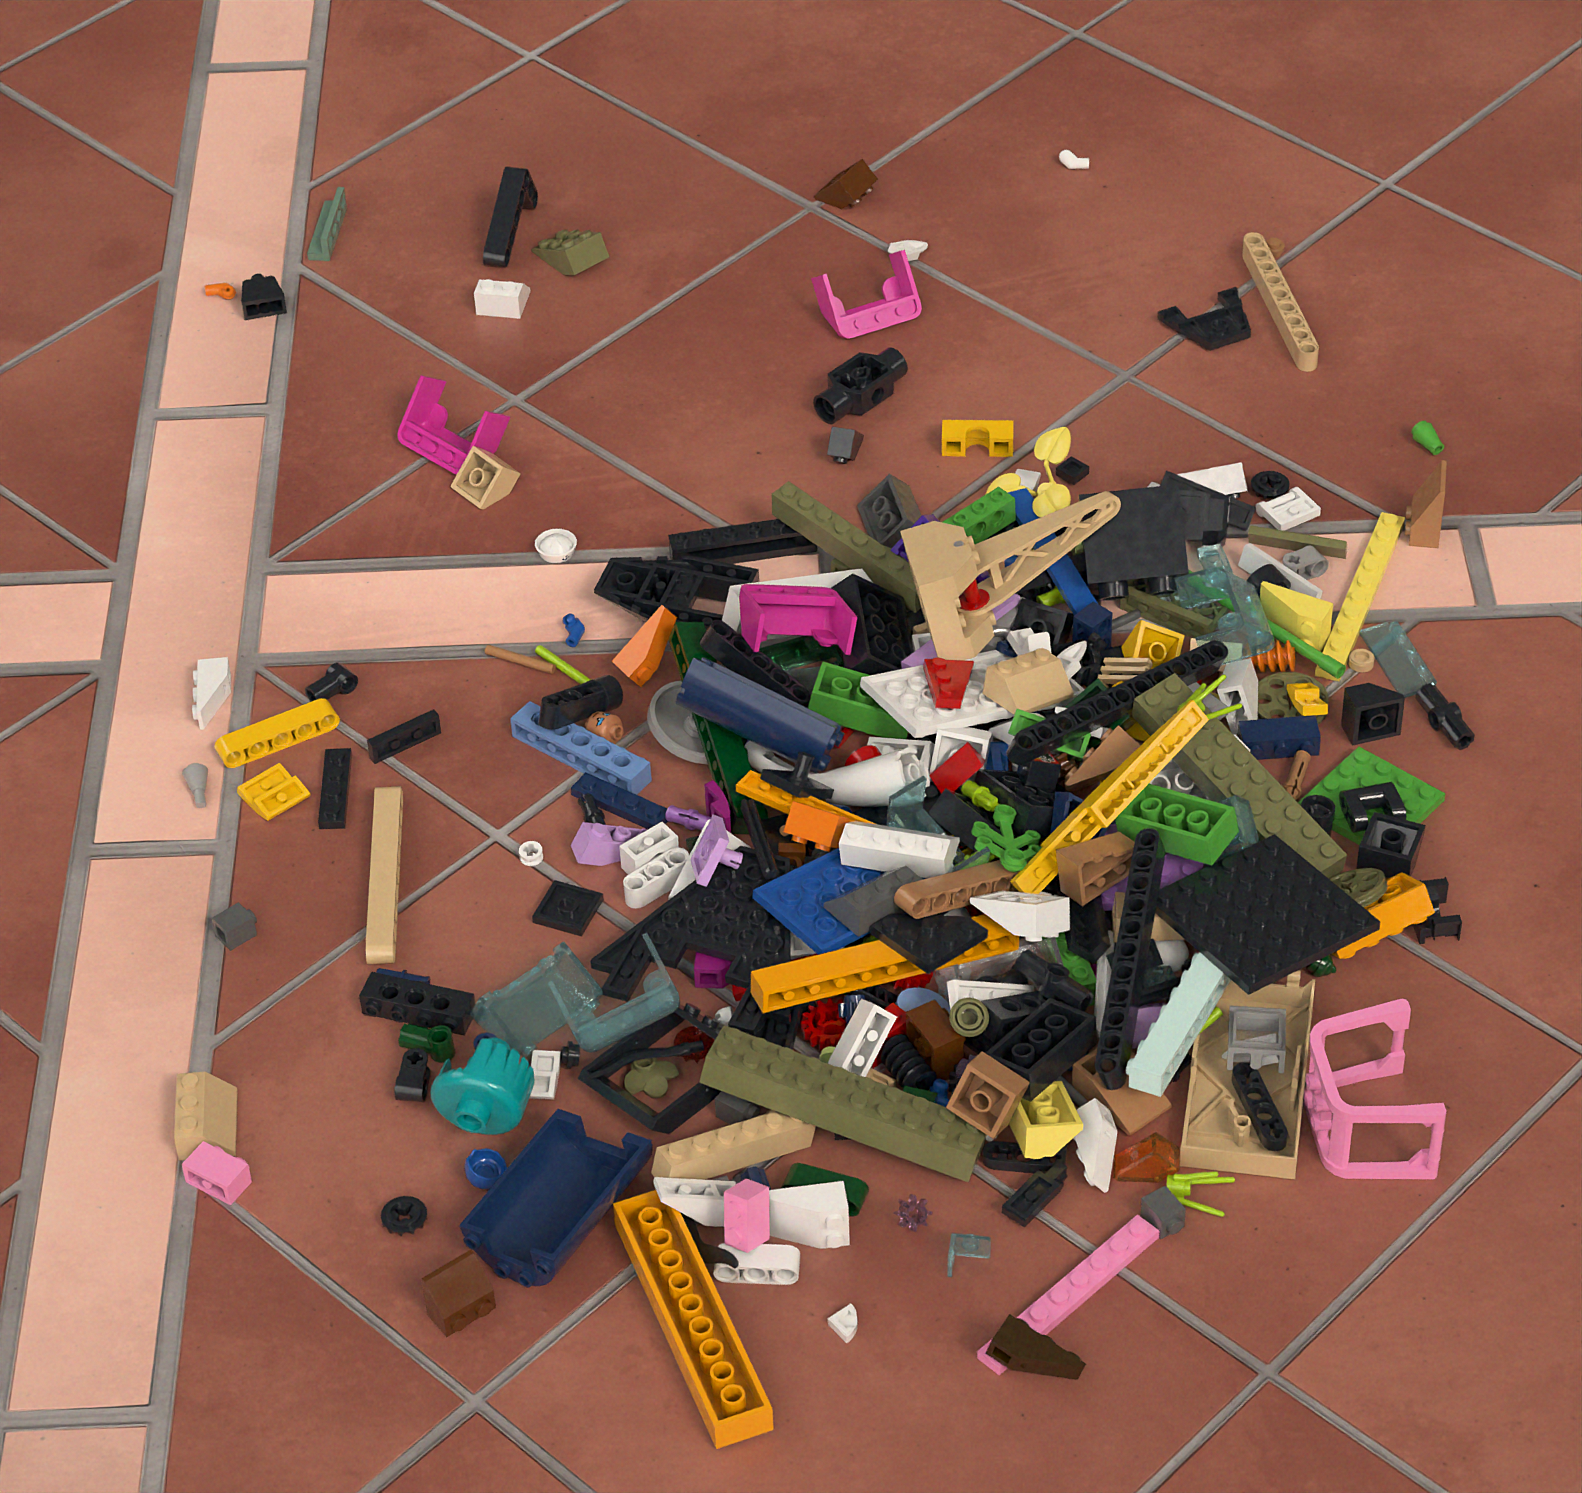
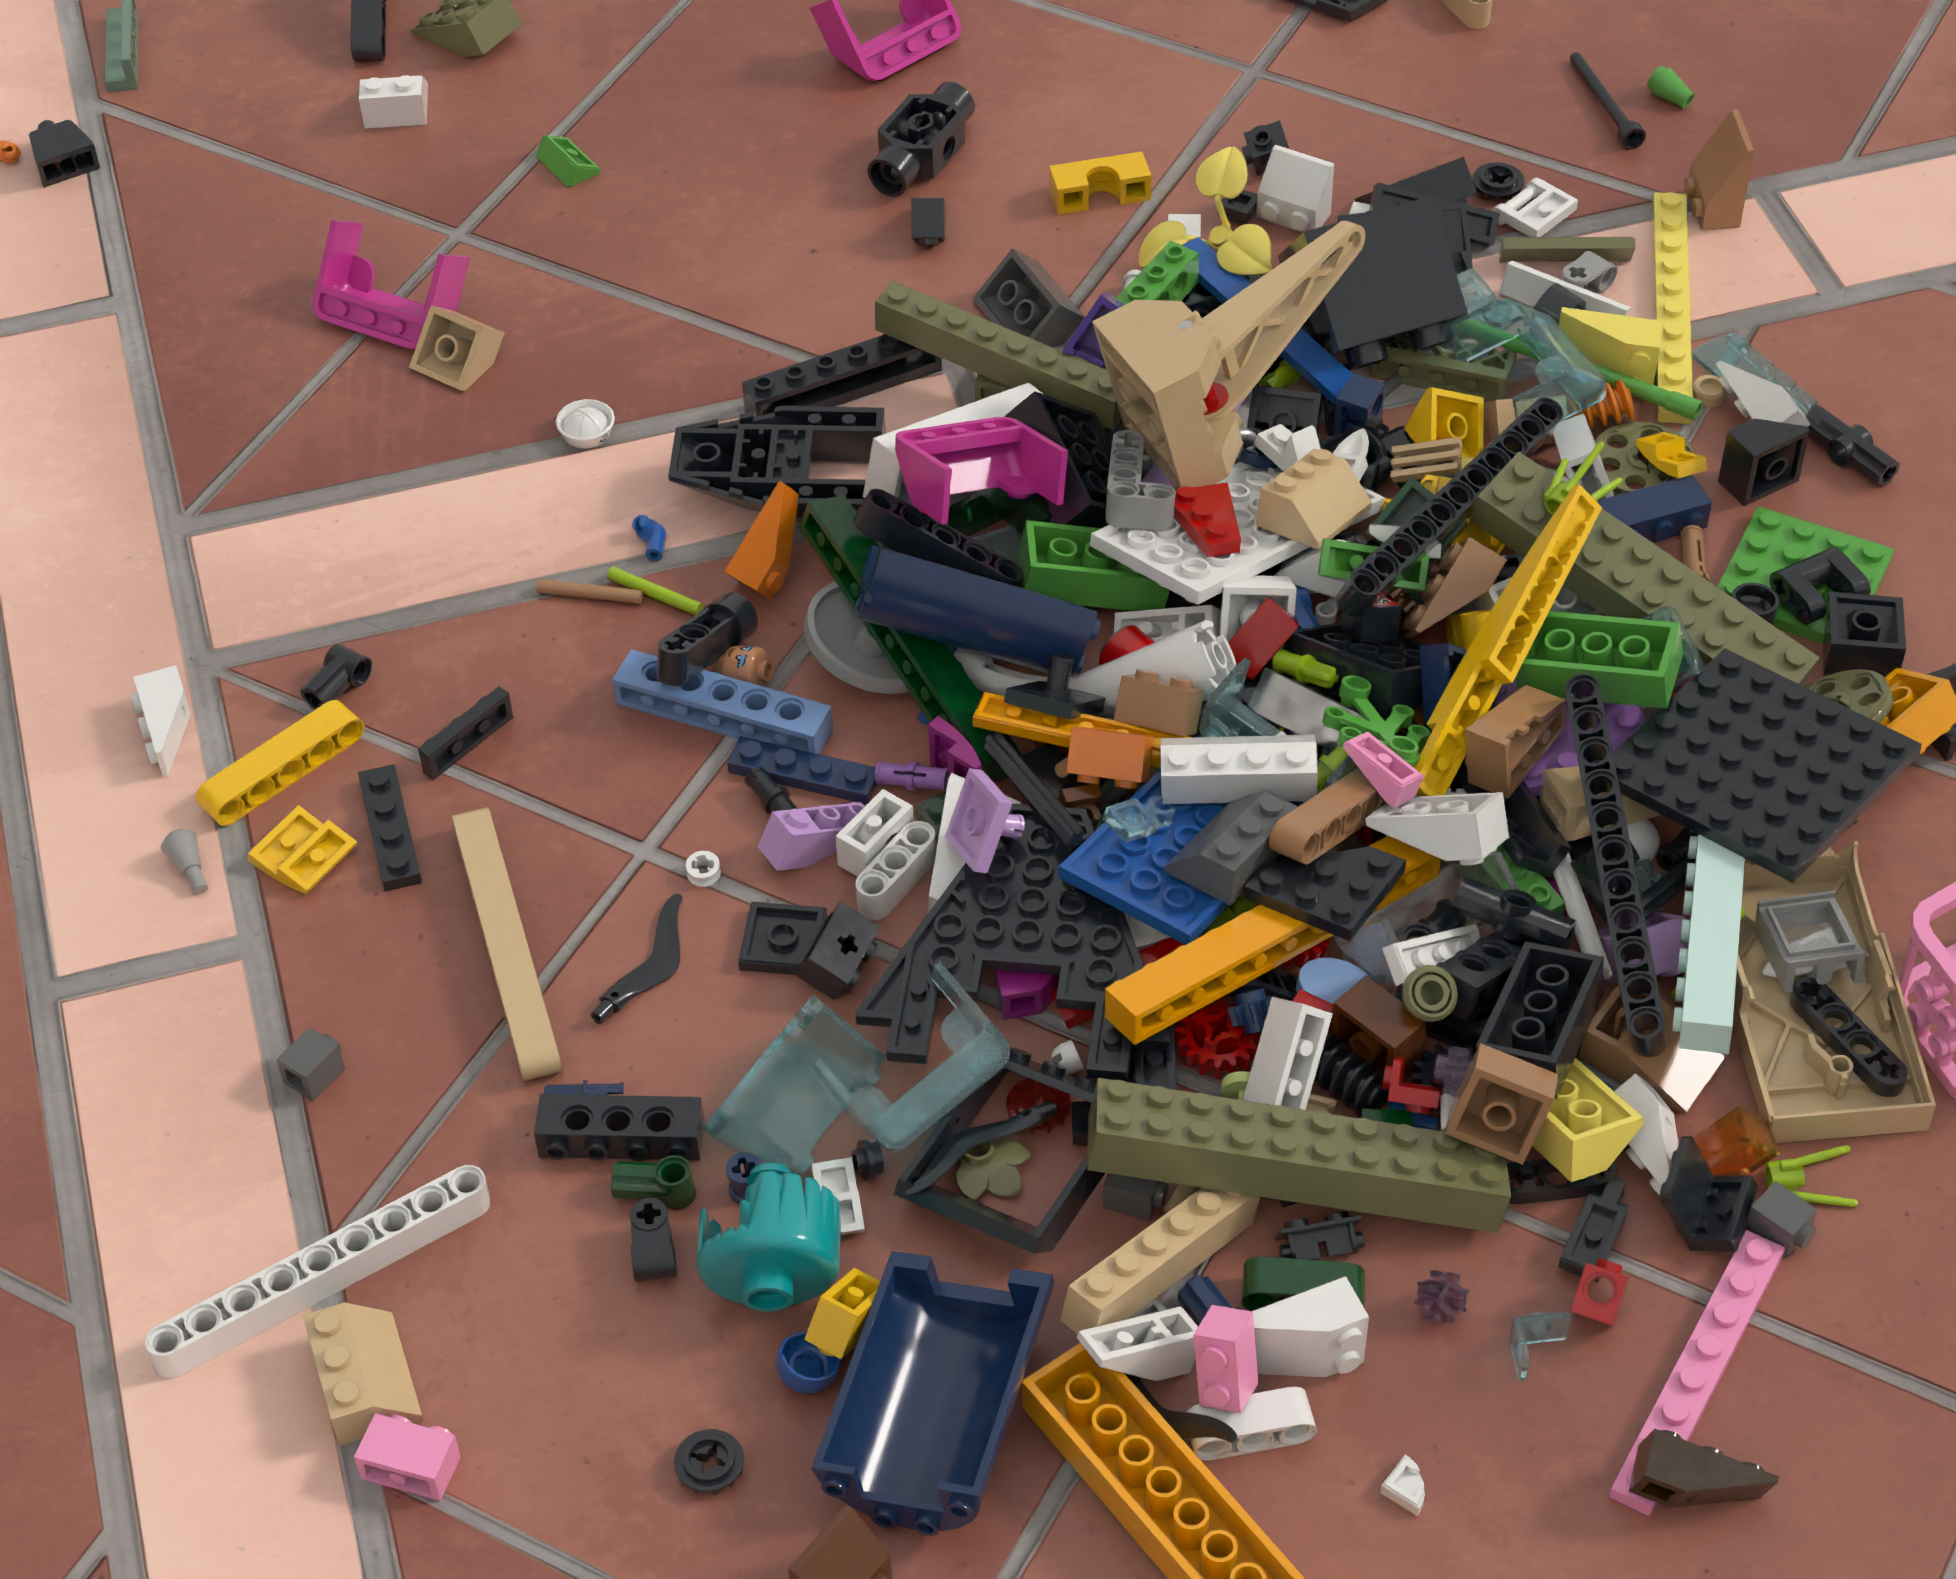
camera: 15 degrees left, 5 degrees up
(199, 1052) = (306, 1284): none -> white beam
(479, 911) = (655, 970): none -> black piece
(511, 1139) = (842, 1314): none -> yellow brick
(604, 909) = (838, 950): none -> black brick
(607, 360) = (566, 160): none -> bright green slope
(814, 869) = (1135, 821): none -> clear light blue plate
(858, 1159) = (1336, 1233): none -> black hinge
(862, 798) = (1159, 704): none -> medium nougat brick
(898, 652) = (1129, 500): none -> light grey beam
(930, 1076) = (1416, 1096): none -> red bracket
(995, 868) = (1385, 770): none -> bright pink slope
(1006, 1230) = (1584, 1303): none -> red brick
(1106, 433) = (1260, 144): none -> black brick
(1109, 1187) = (1706, 1207): none -> black bracket
(1113, 465) = (1295, 190): none -> white slope
(1382, 466) = (1629, 132): none -> black piece
(1391, 673) = (1760, 397): none -> white slope

